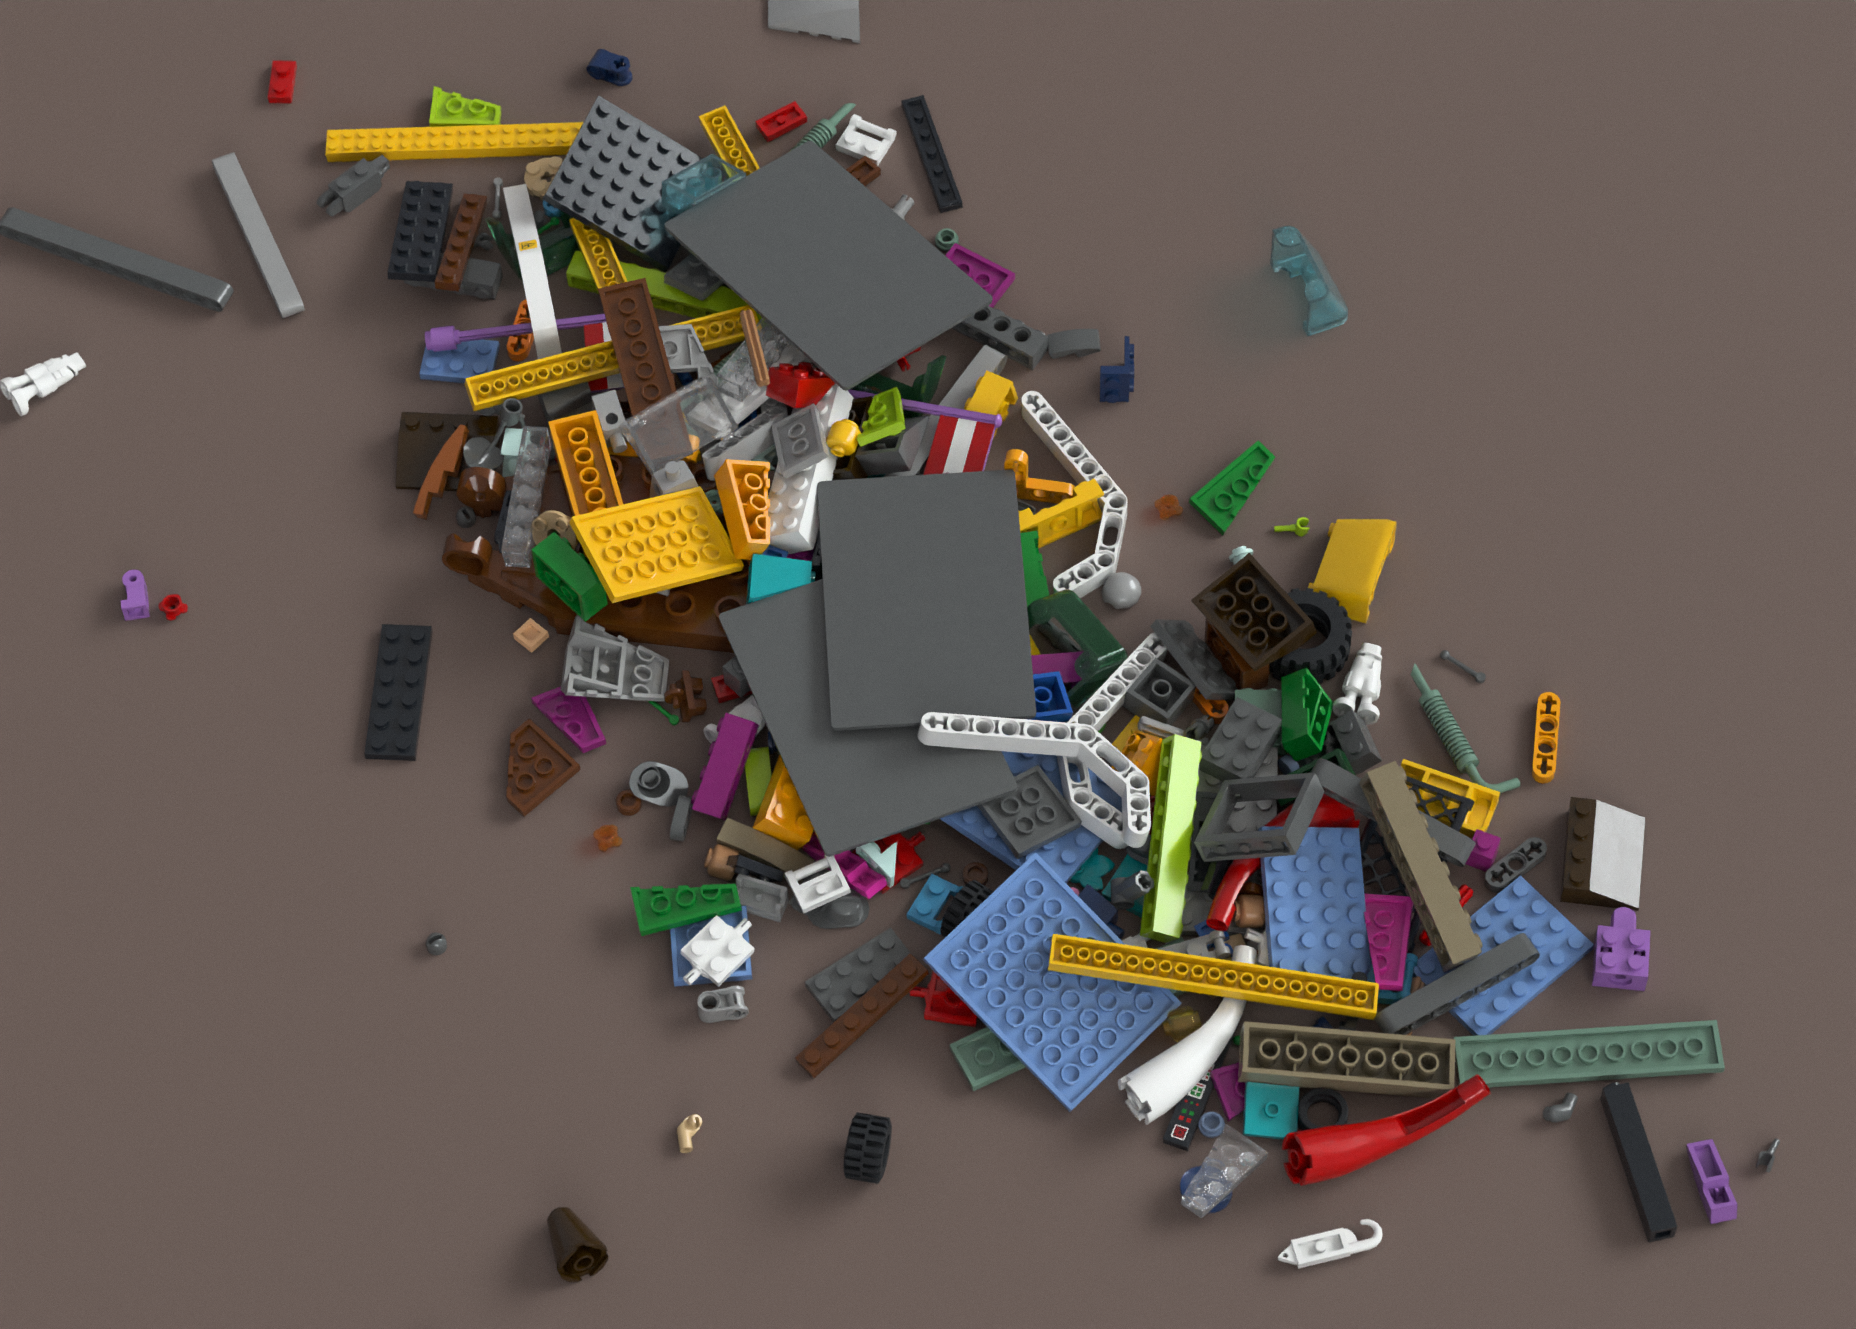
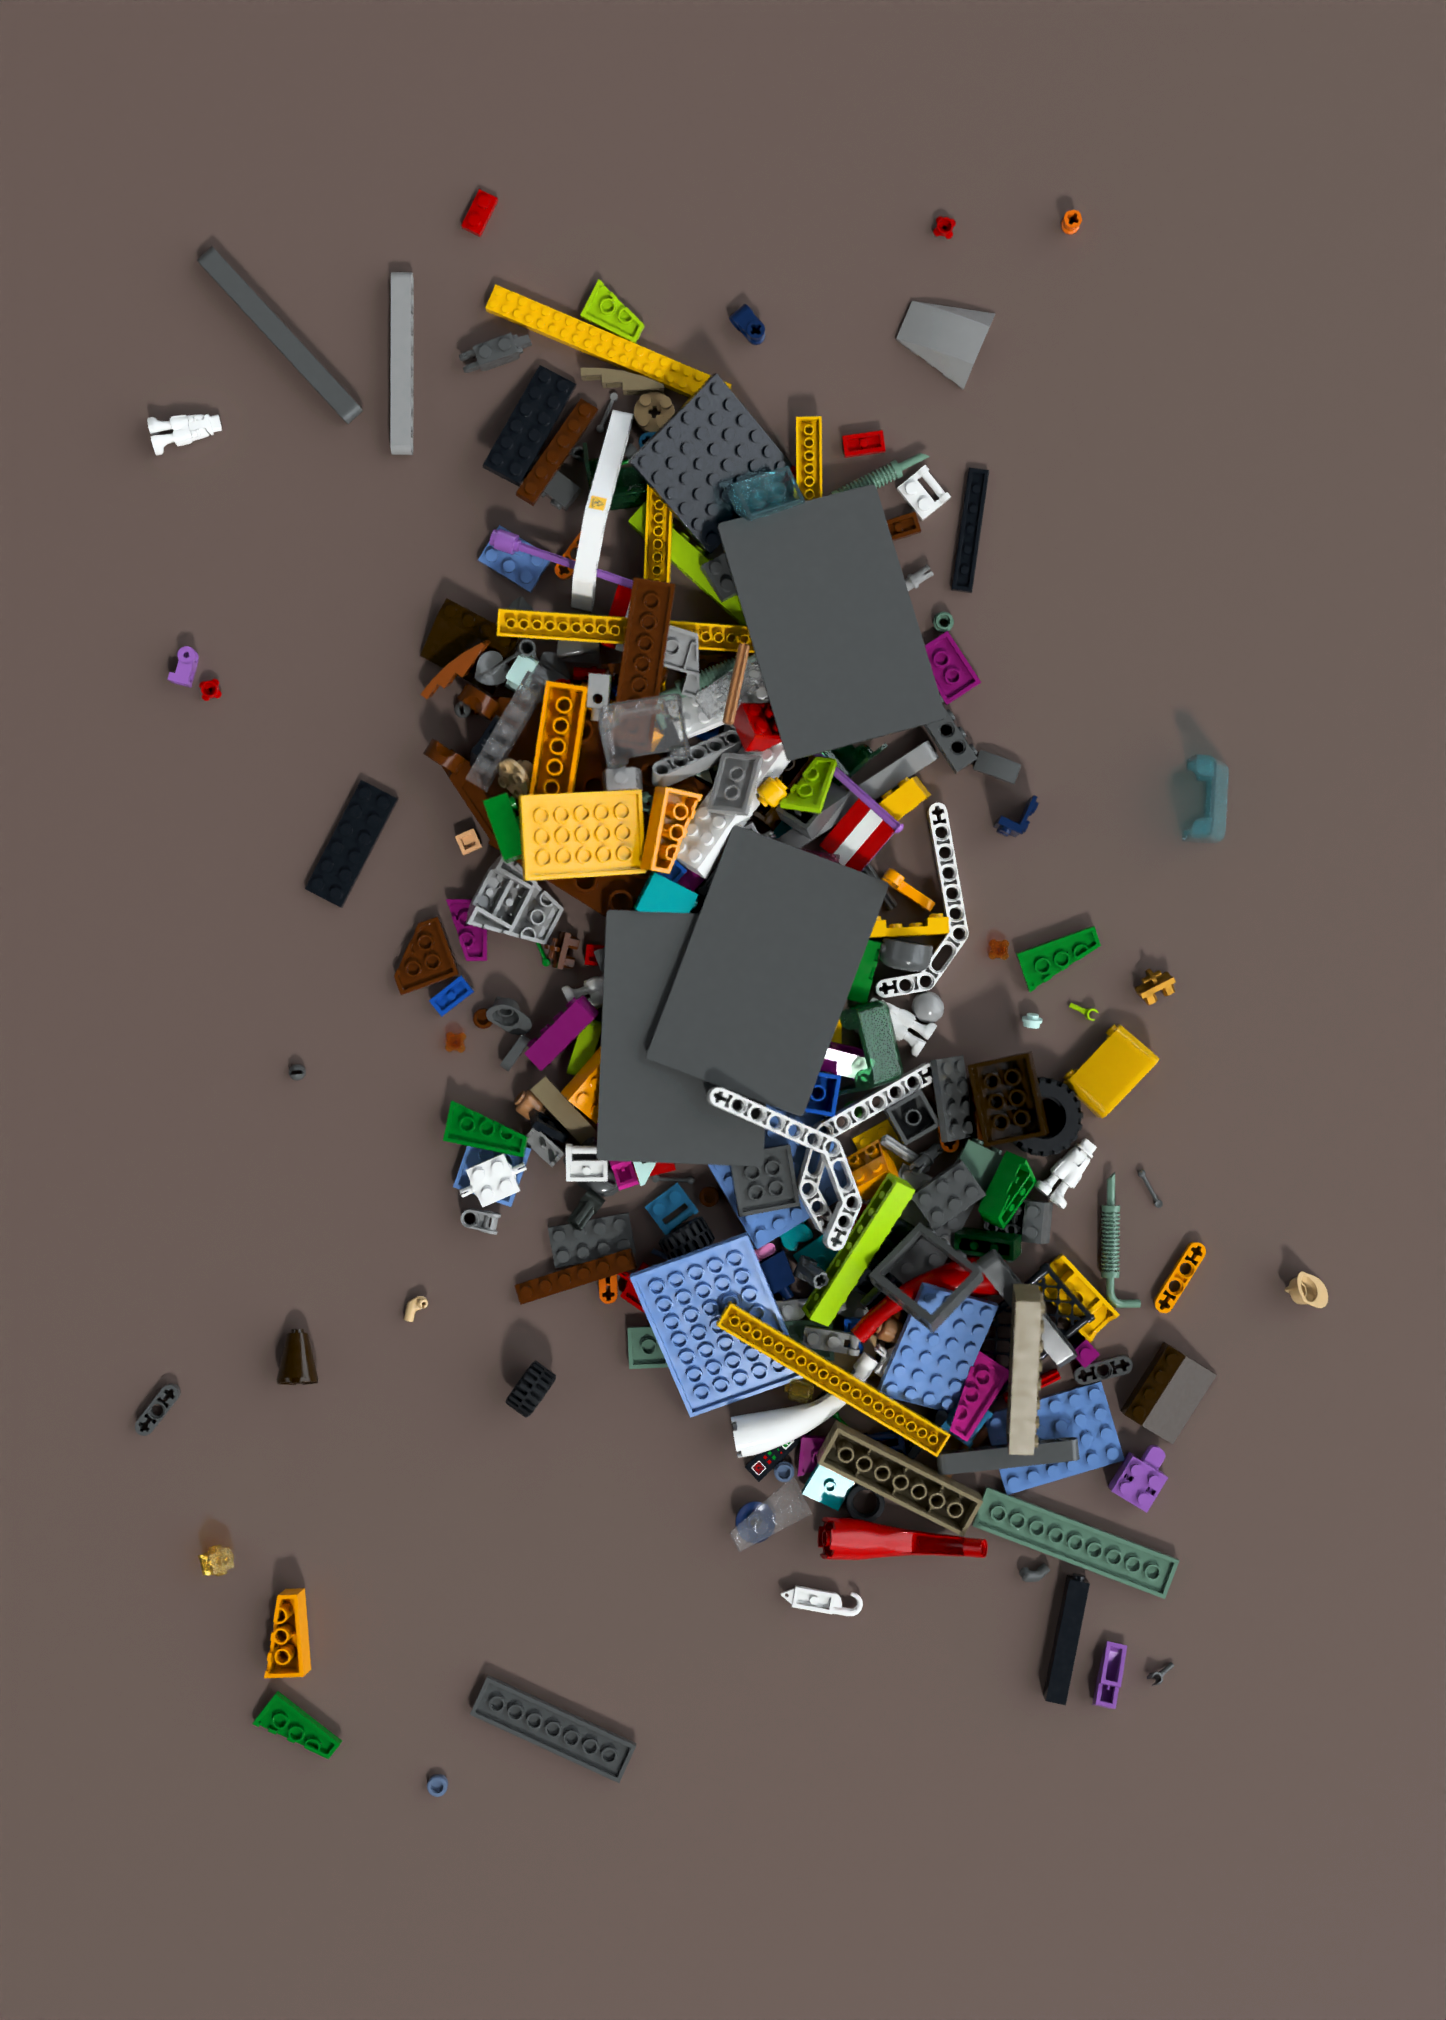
camera: 15 degrees right, 30 degrees up
(510, 160) = (632, 383): none -> dark tan slope
(581, 792) = (451, 996): none -> blue plate
(840, 939) = (588, 1205): none -> pearl dark grey piece
(909, 1010) = (613, 1288): none -> orange beam
(1067, 535) = (905, 954): none -> dark grey piece
(1105, 609) = (902, 1021): none -> white piece
(1287, 764) = (977, 1217): sand blue tile -> none
(1350, 479) = (1153, 983): none -> pearl gold hips
(1688, 689) = (1308, 1290): none -> tan piece

